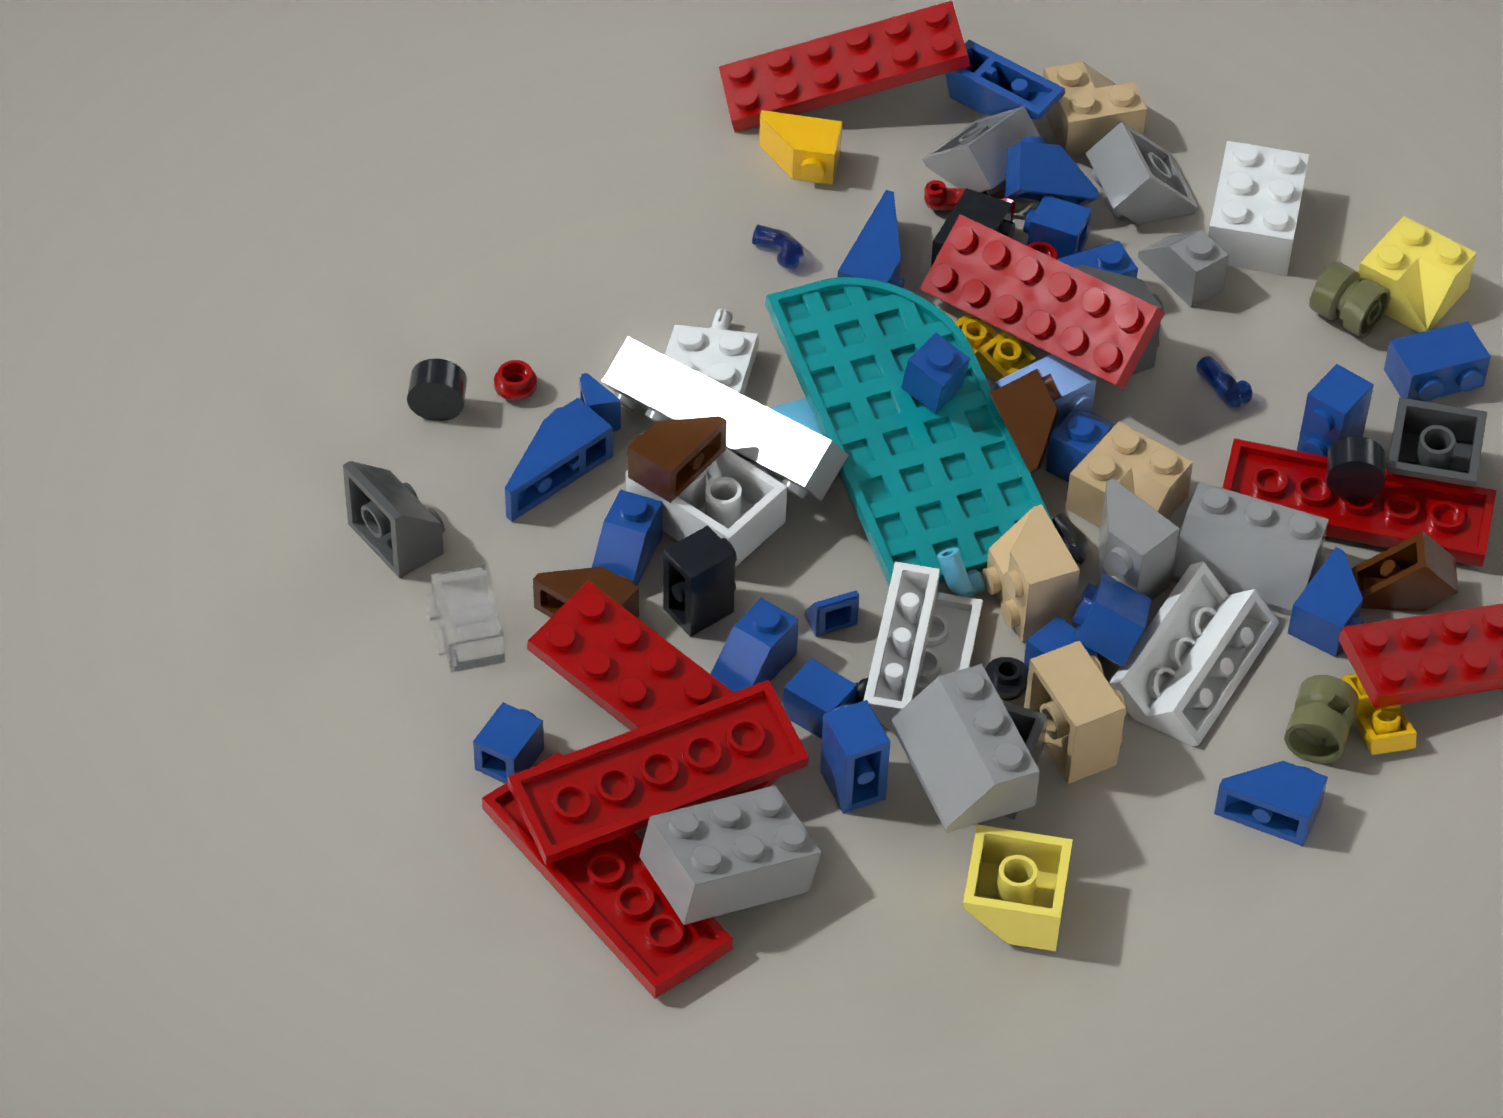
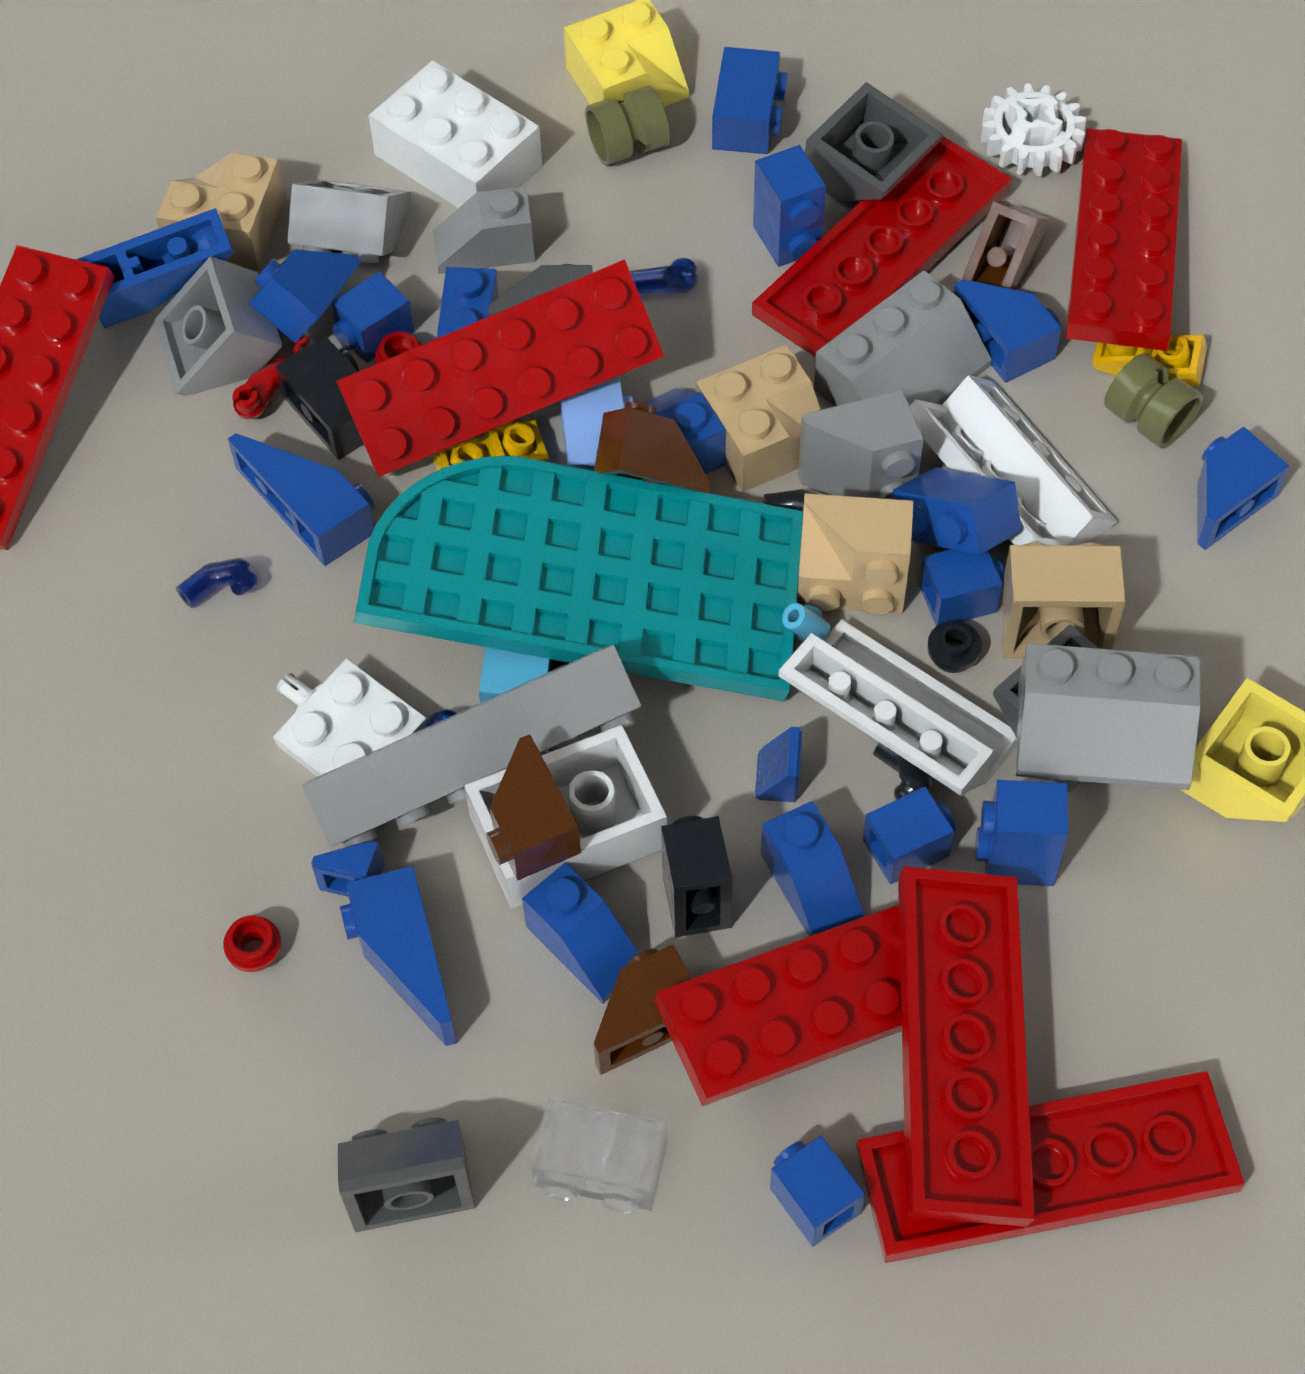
camera: 60 degrees left, 10 degrees up
(437, 389) = (224, 1034): black piece -> none
(729, 854) = (1107, 1022): light grey brick -> none
(802, 145) = (90, 491): yellow slope -> none
(935, 372) = (566, 504): blue brick -> none
(1355, 468) = (872, 217): black piece -> none

